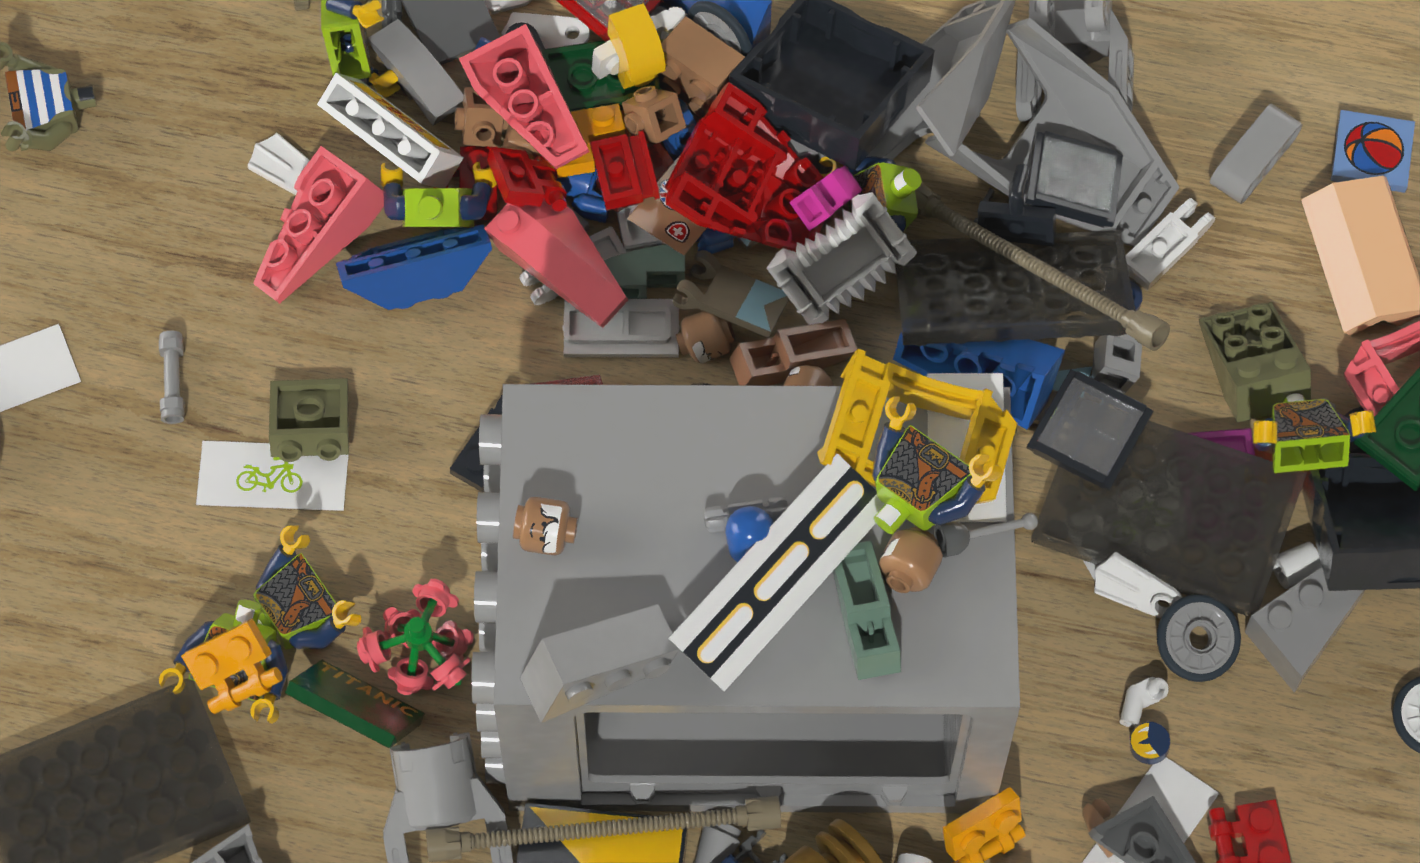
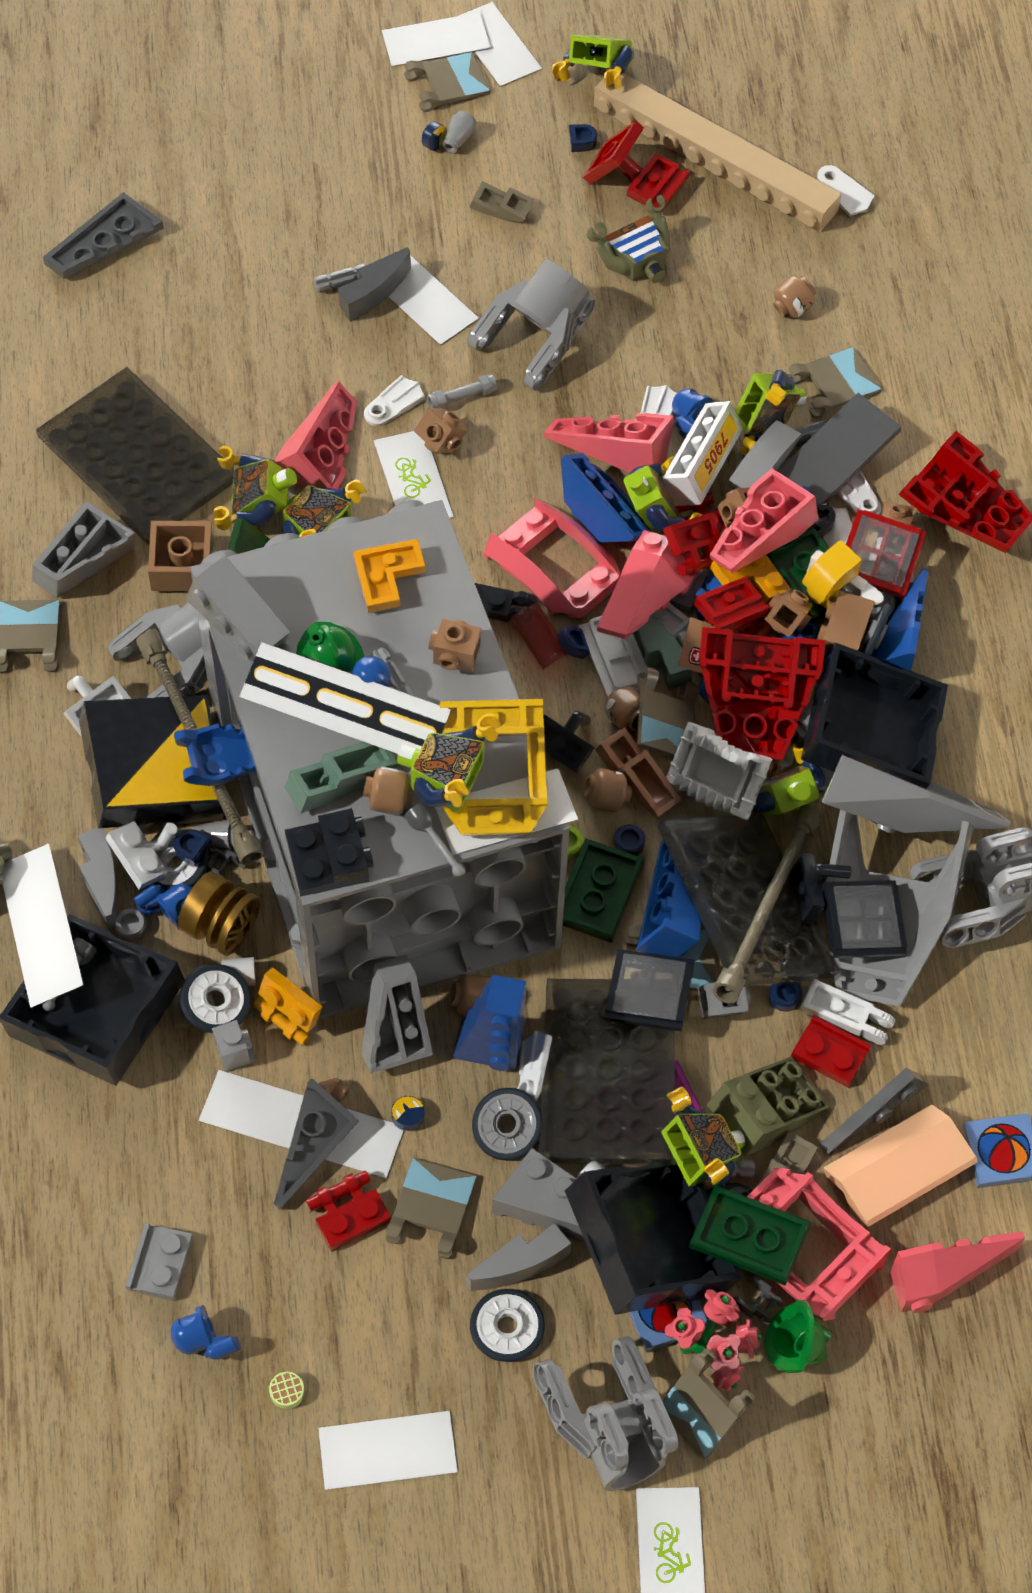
camera: 70 degrees right, 5 degrees down
(98, 224) = (550, 301): none -> light grey piece
(147, 462) = (394, 401): none -> white piece
(186, 573) = (320, 442): none -> coral wedge
(226, 655) = (250, 477): light orange plate -> none
(229, 416) = (440, 430): none -> medium nougat brick
(297, 780) = (174, 550): none -> medium nougat brick
(308, 126) = (687, 407): none -> blue piece
(309, 418) = (460, 479): olive plate -> none
(415, 375) = (527, 532): none -> coral wedge
(544, 526) = (330, 548): medium nougat head -> none
(588, 365) = (573, 642): none -> dark blue tile
(589, 483) = (380, 567): none -> light orange plate
(640, 790) = (215, 754): none -> blue animal
(684, 573) = (330, 646): none -> green helmet
(737, 425) = (456, 645): none -> medium nougat brick
(826, 197) = (772, 745): dark pink leg -> none
(966, 654) = (329, 853): none -> black plate
(1035, 623) = (465, 992): none -> medium nougat head
(1055, 716) = (395, 1017): none -> light grey wedge
(1098, 603) = (494, 1026): none -> blue wedge
(1141, 696) = (444, 1095): white arm -> none
(1206, 277) = (830, 1051): none -> red plate
(1256, 153) = (957, 1057): light grey beam -> none
(1266, 748) = (434, 1200): none -> dark tan flag
(1295, 251) = (876, 1109): none -> dark grey wing
(1328, 366) = (793, 1154): none -> dark tan slope
(1368, 674) = (520, 1260): none -> light grey slope

